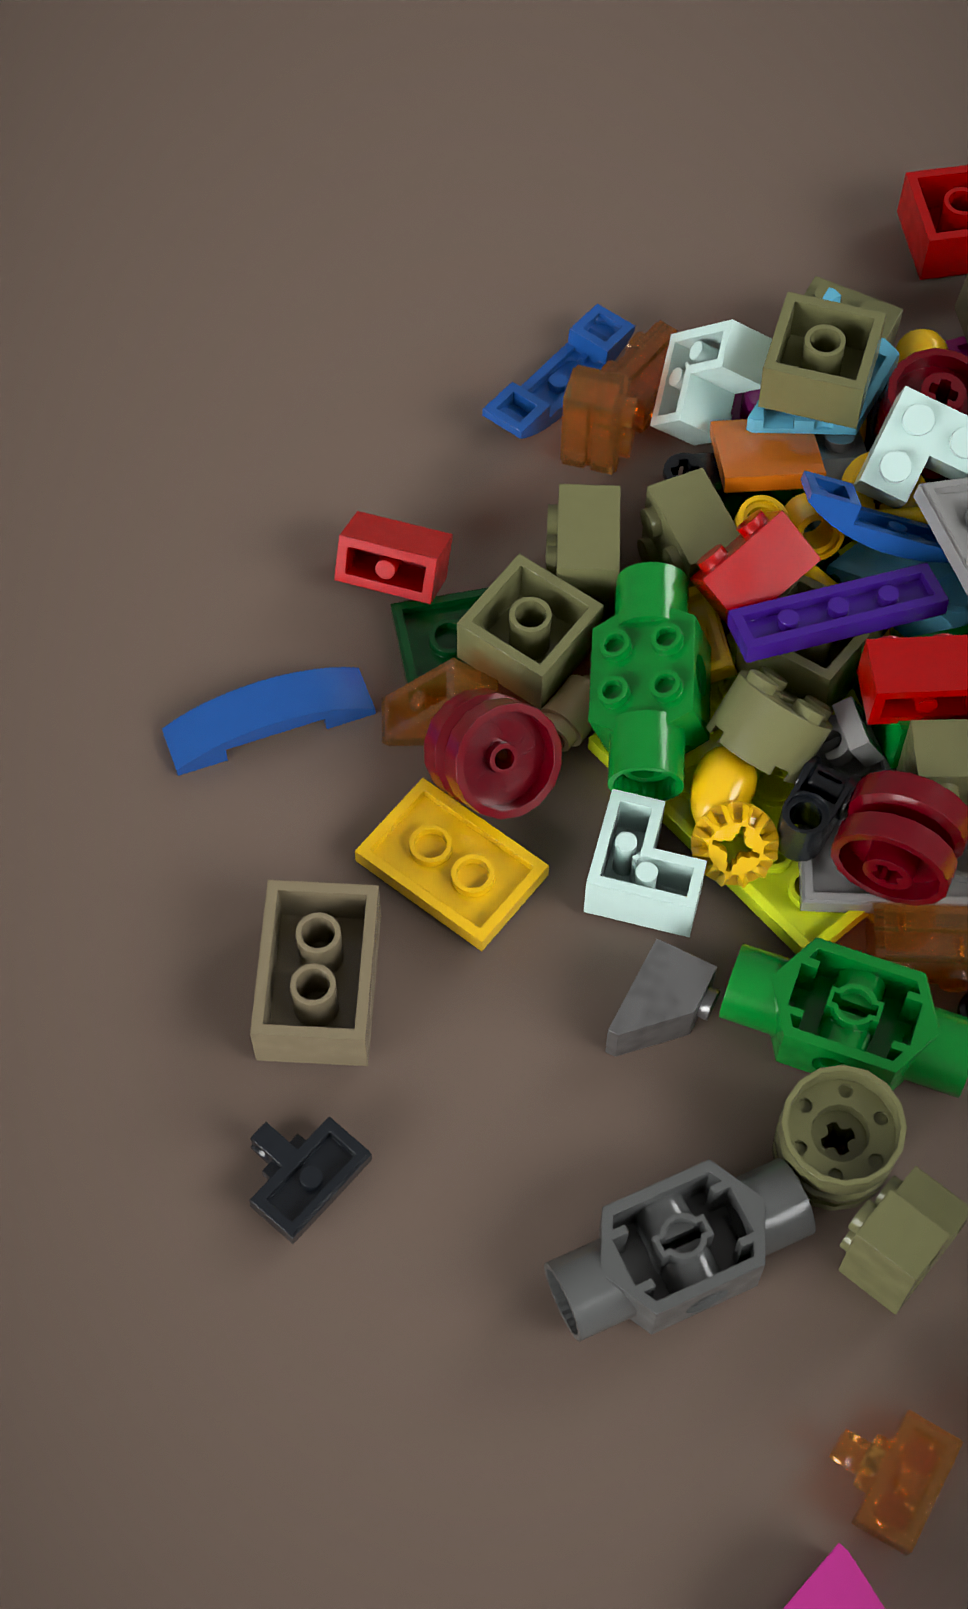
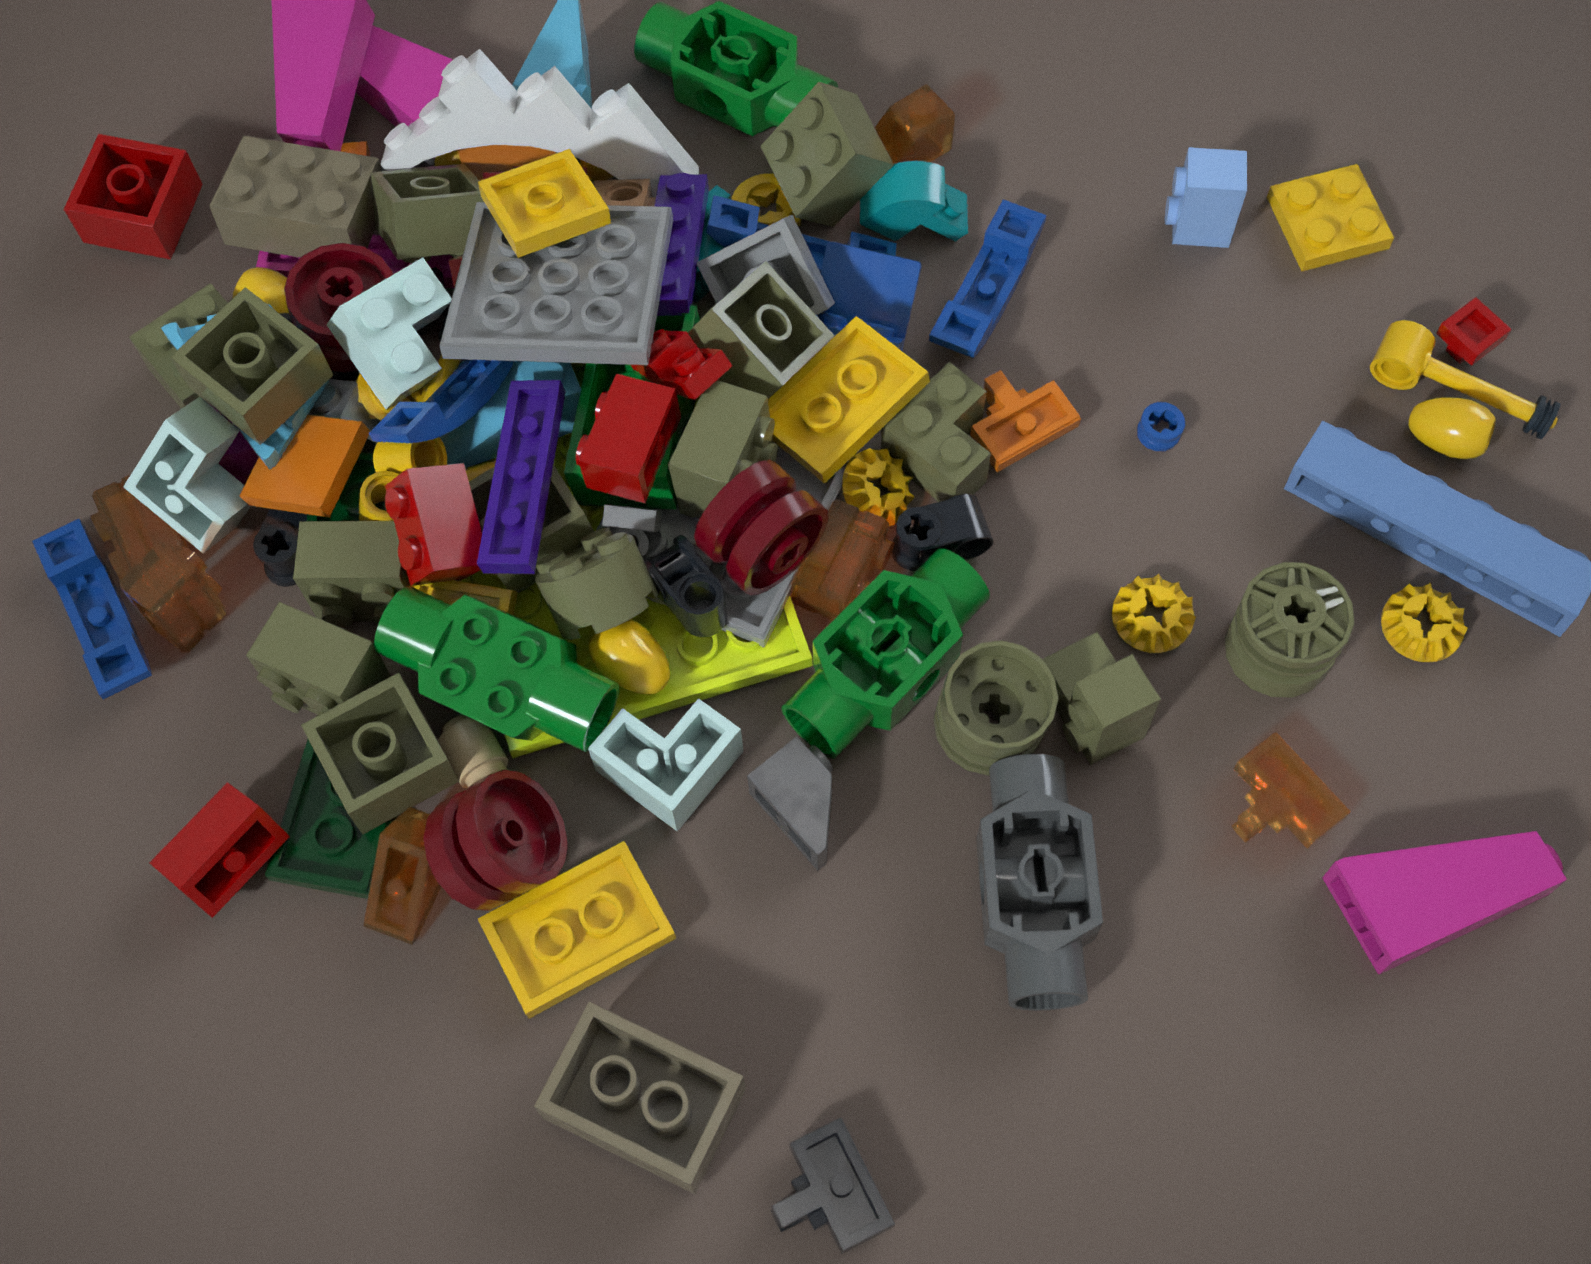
camera: 65 degrees left, 5 degrees up
(264, 710) = (325, 1048): blue slope -> none
(724, 823) = (671, 668): yellow gear -> none

